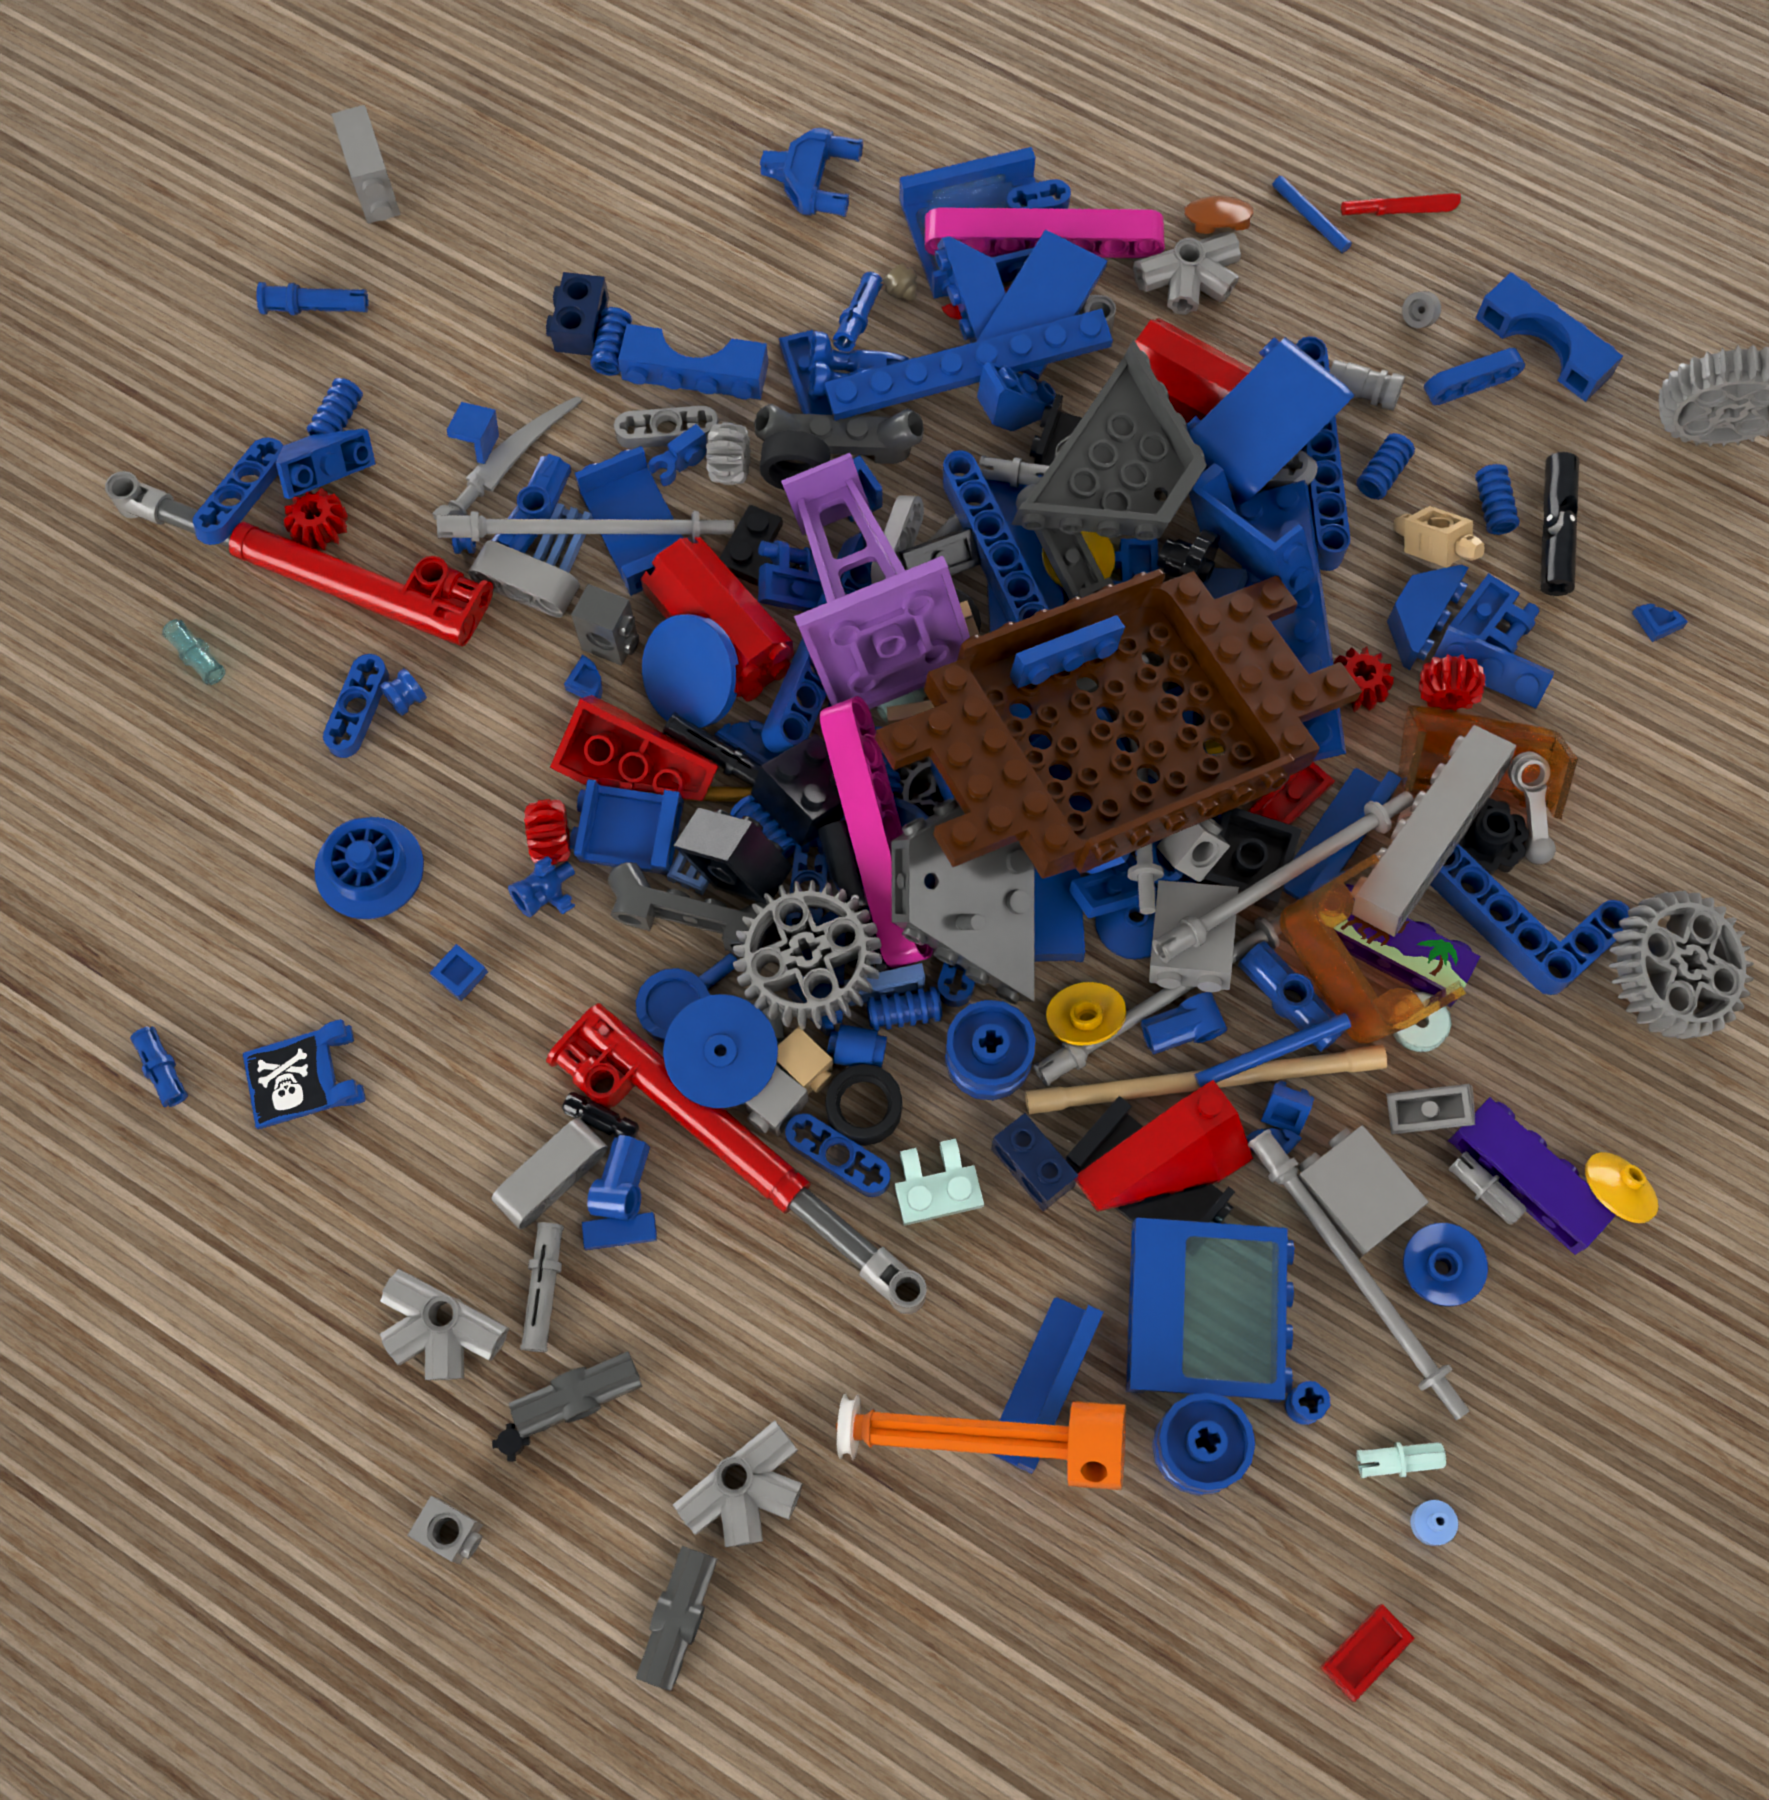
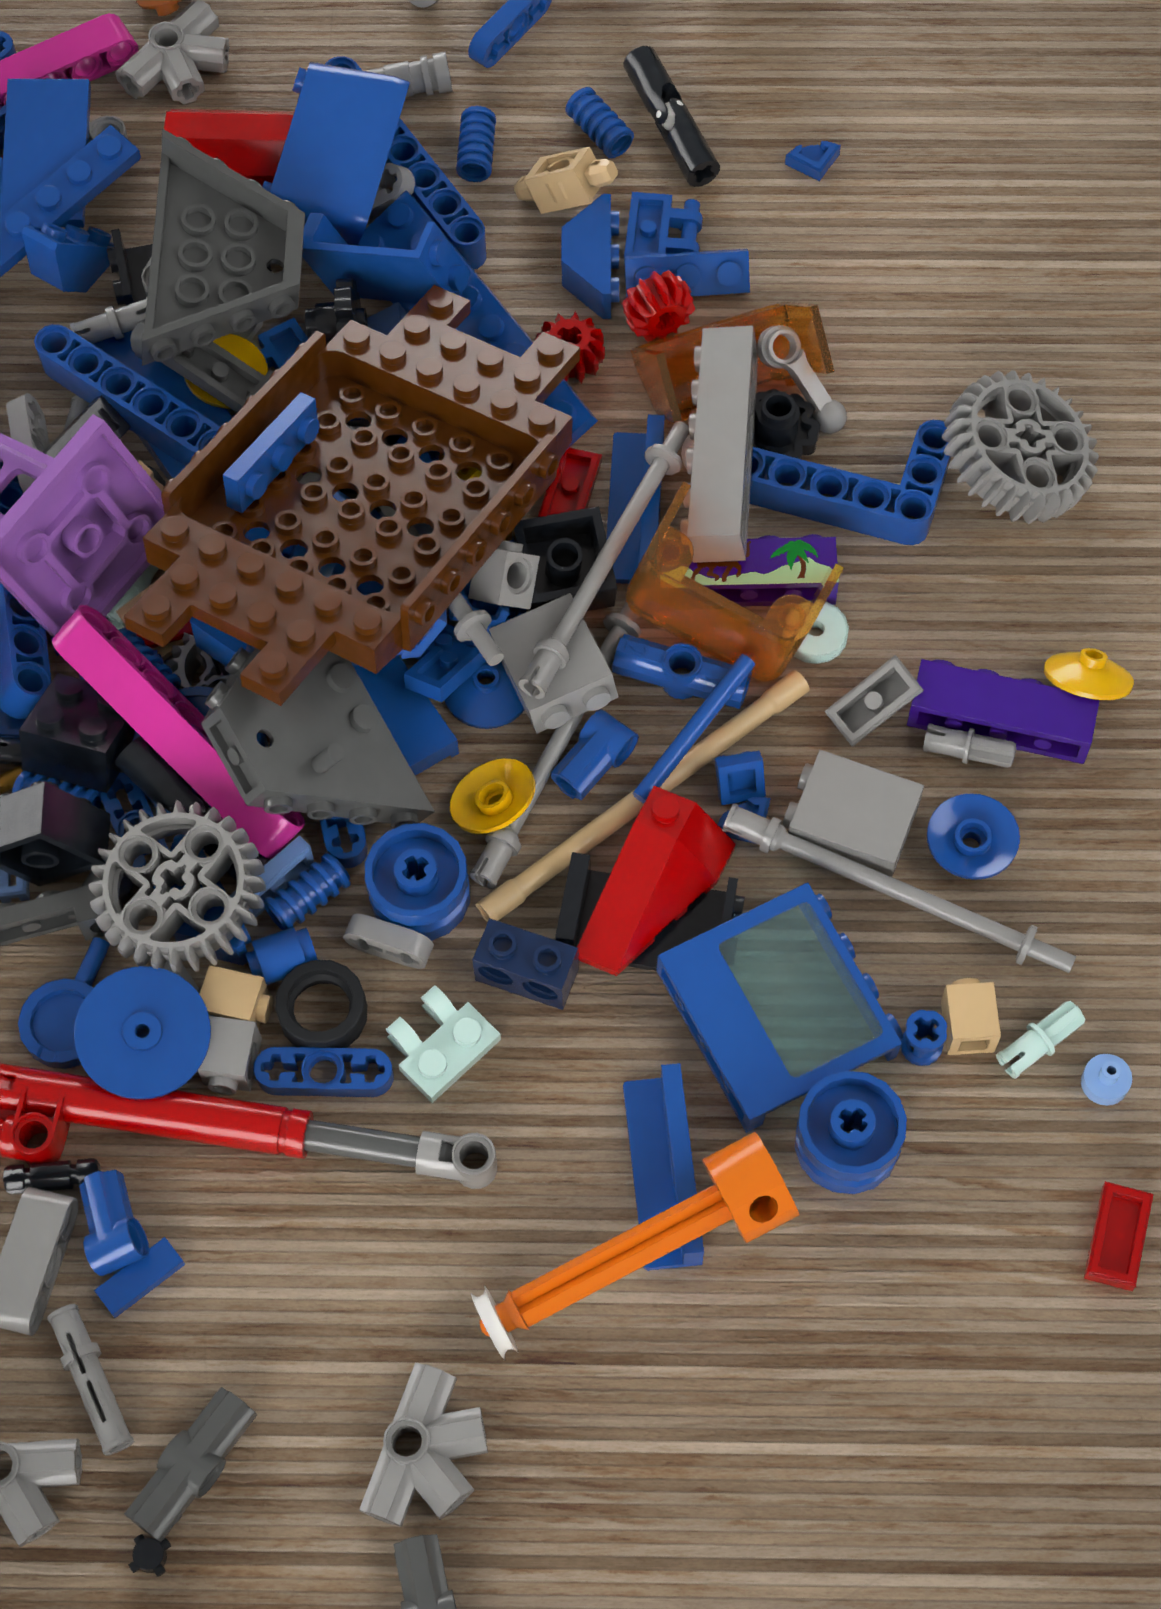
camera: 30 degrees left, 5 degrees down
(942, 1082) = (388, 941): none -> light grey beam
(1354, 1408) = (970, 1017): none -> tan brick

